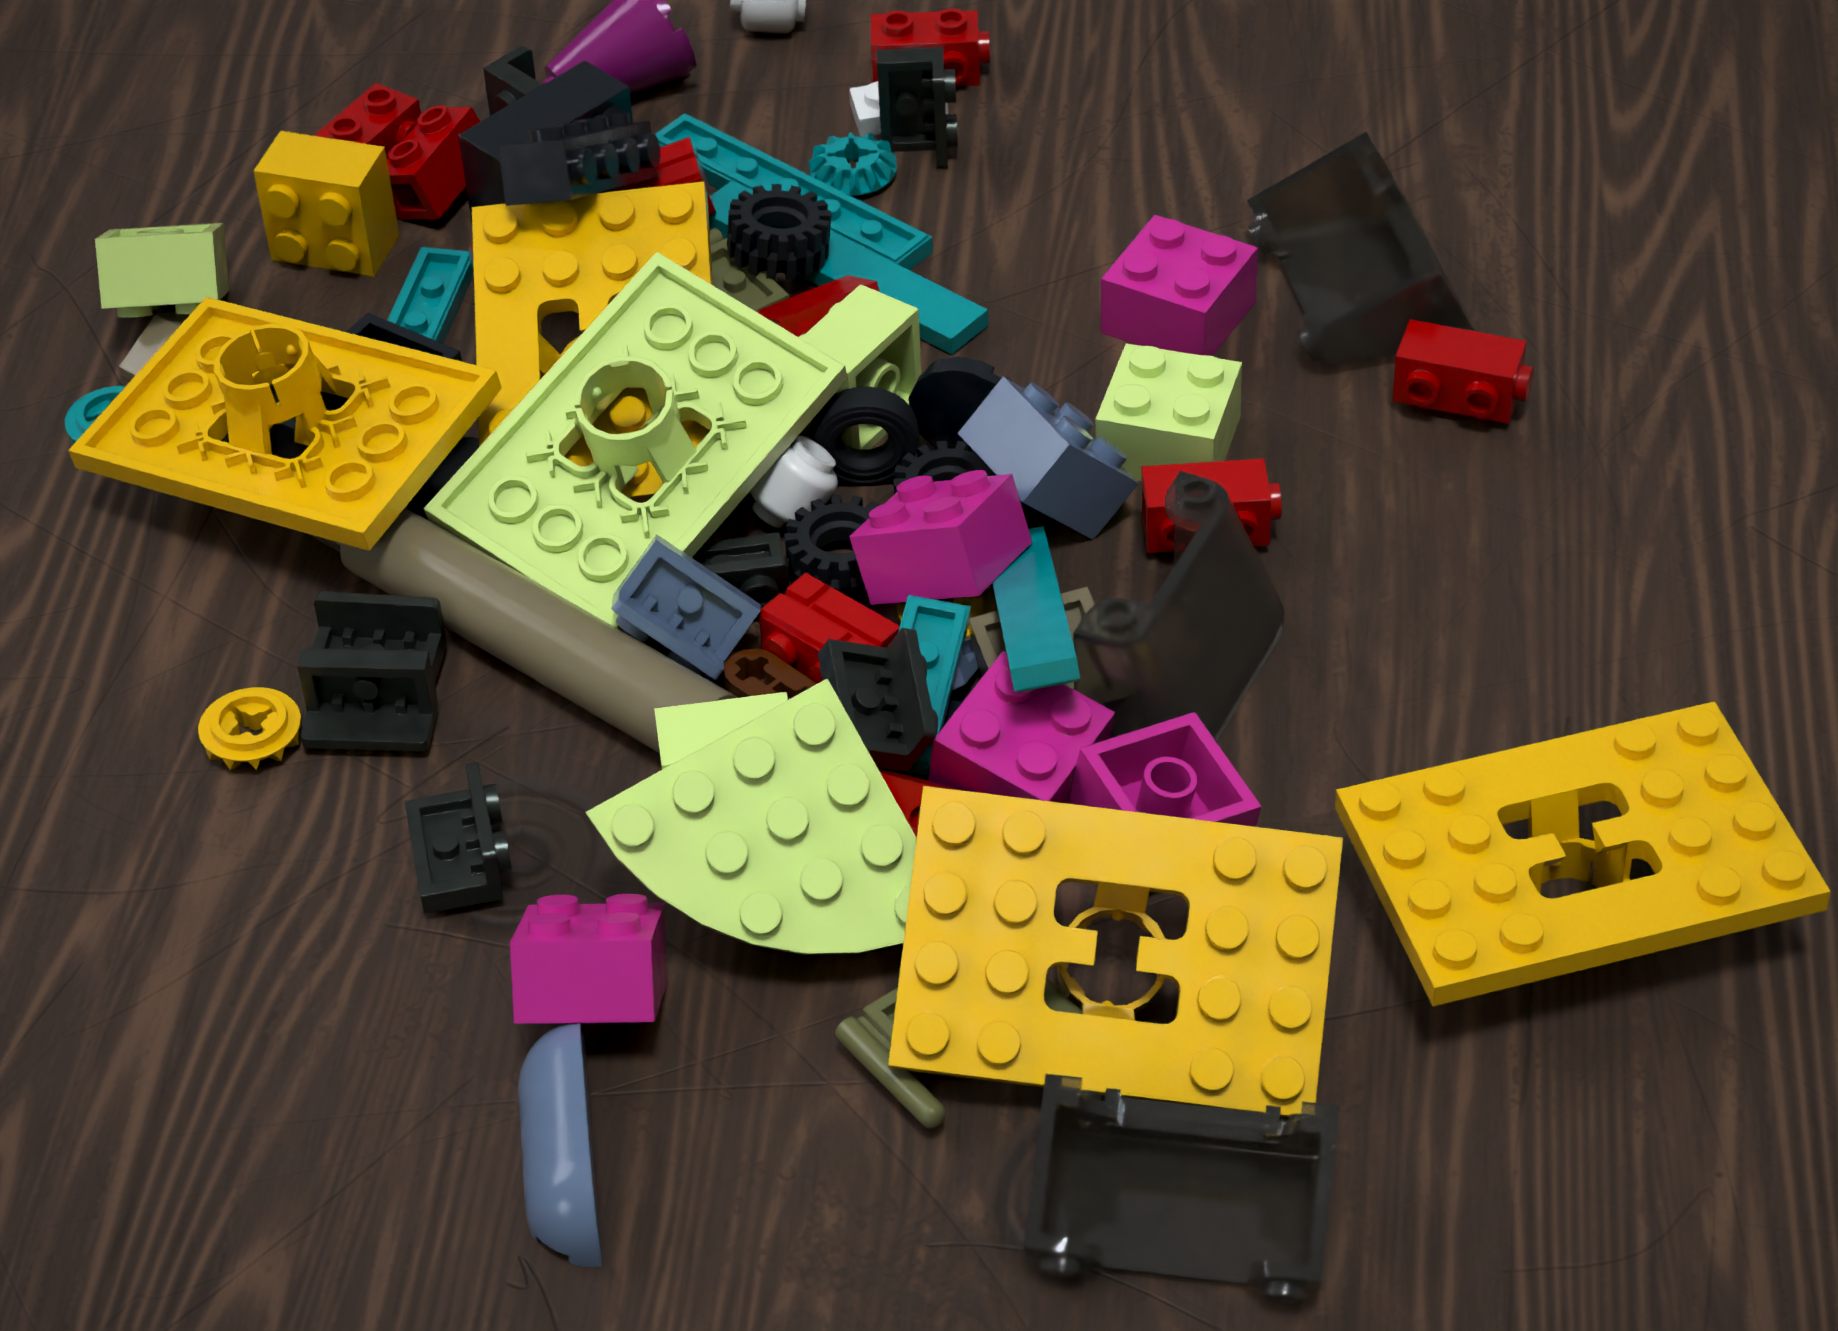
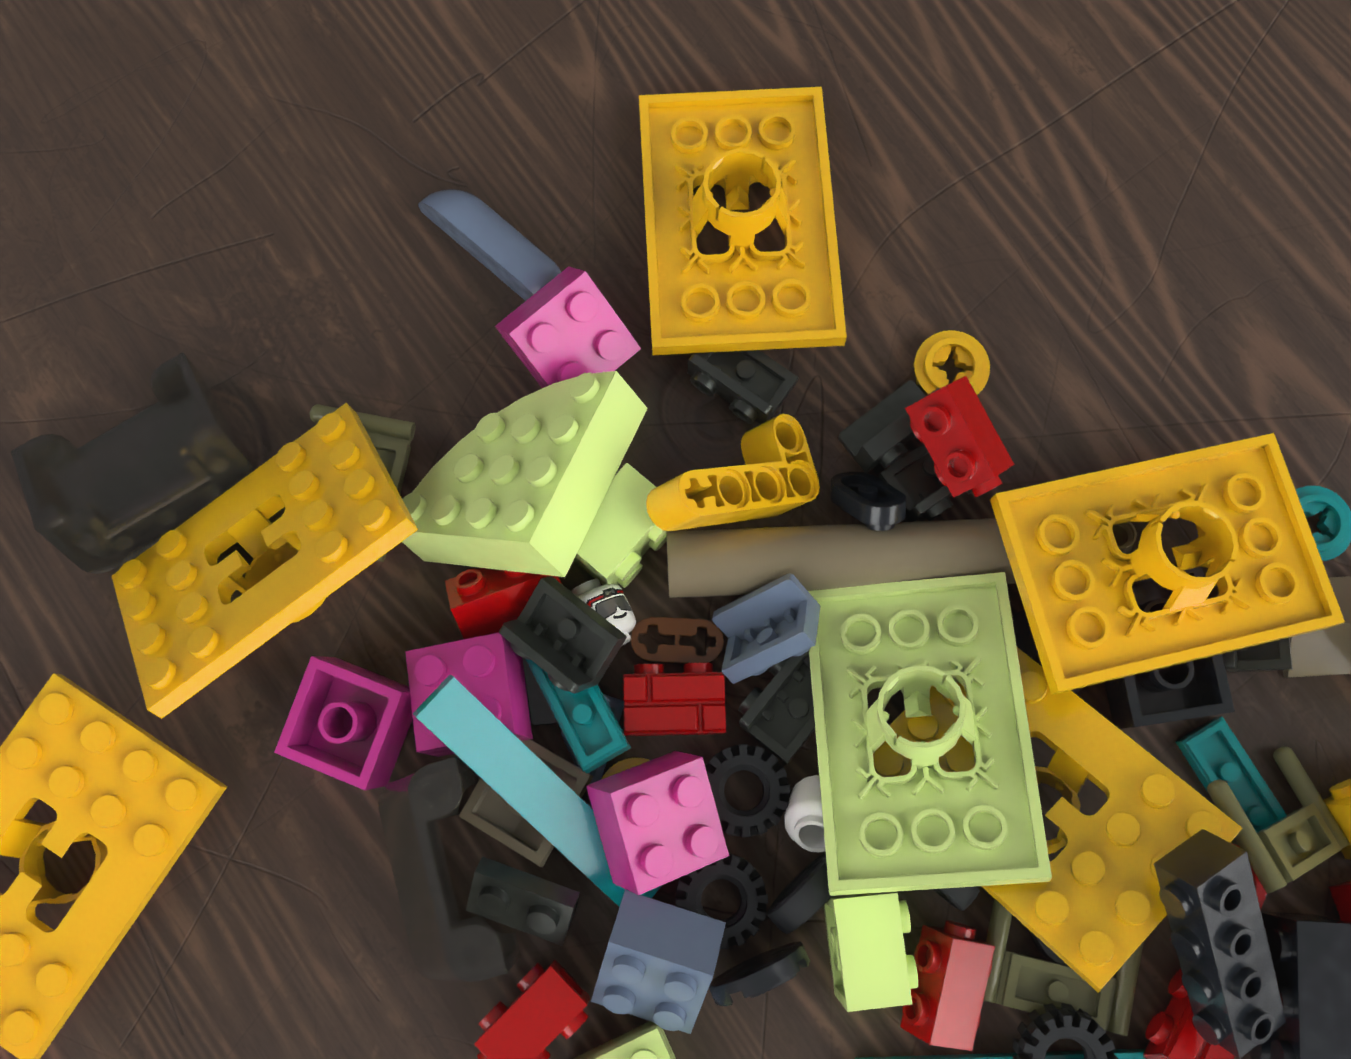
camera: 135 degrees right, 35 degrees up
(202, 1058) = (745, 294): none -> yellow plate
(338, 591) = (960, 439): none -> red brick
(421, 235) = (1295, 841): none -> olive plate
(467, 654) = (868, 499): none -> black plate
(572, 707) = (773, 481): none -> yellow beam
(1118, 564) = (522, 901): none -> pearl dark grey bracket

